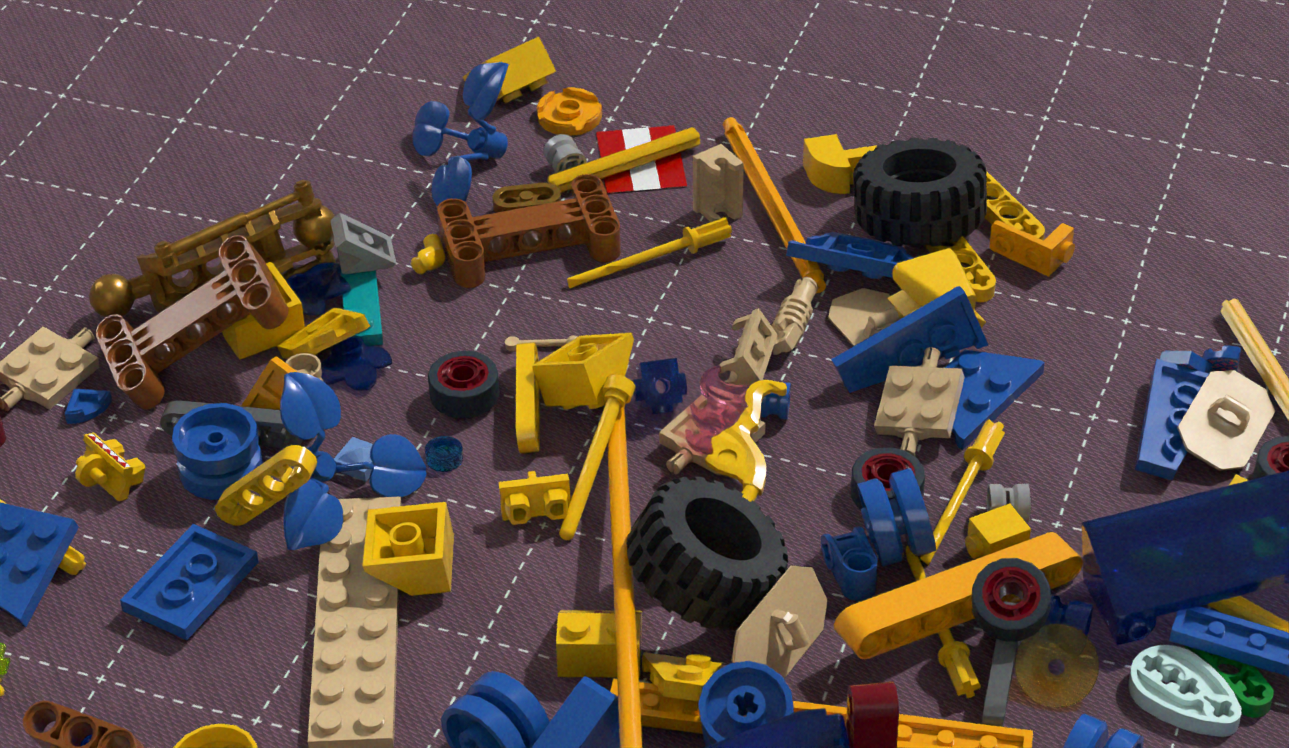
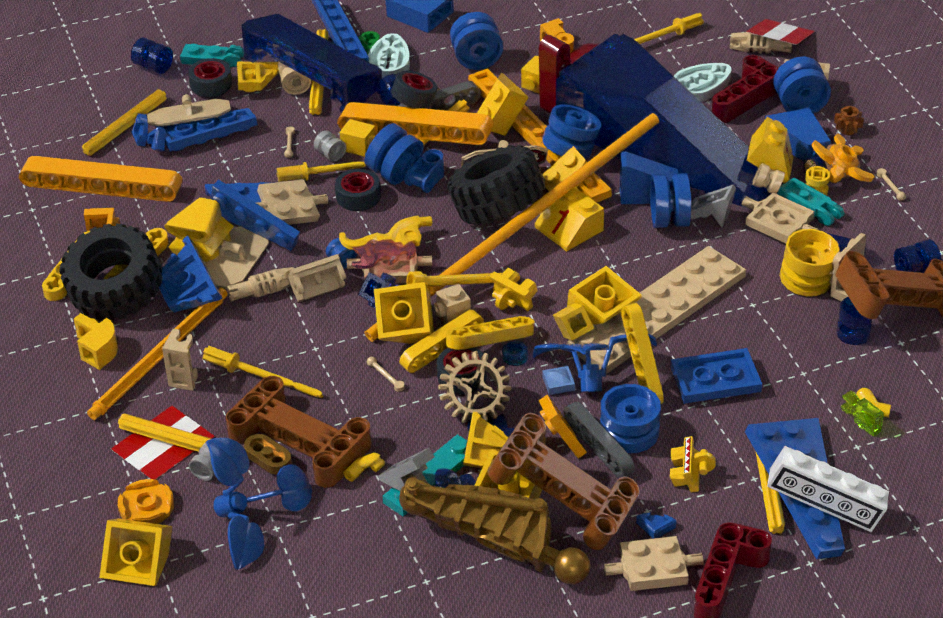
camera: 130 degrees left, 0 degrees up
(409, 356) = (487, 391): none -> tan gear
(410, 489) = (573, 321): none -> yellow brick
(481, 426) = (489, 332): none -> yellow beam
(566, 431) = (451, 303): none -> tan brick
(915, 691) = (503, 104): none -> yellow slope
(1098, 501) = (288, 152): none -> tan hinge
(1144, 286) = (101, 178): none -> light orange beam

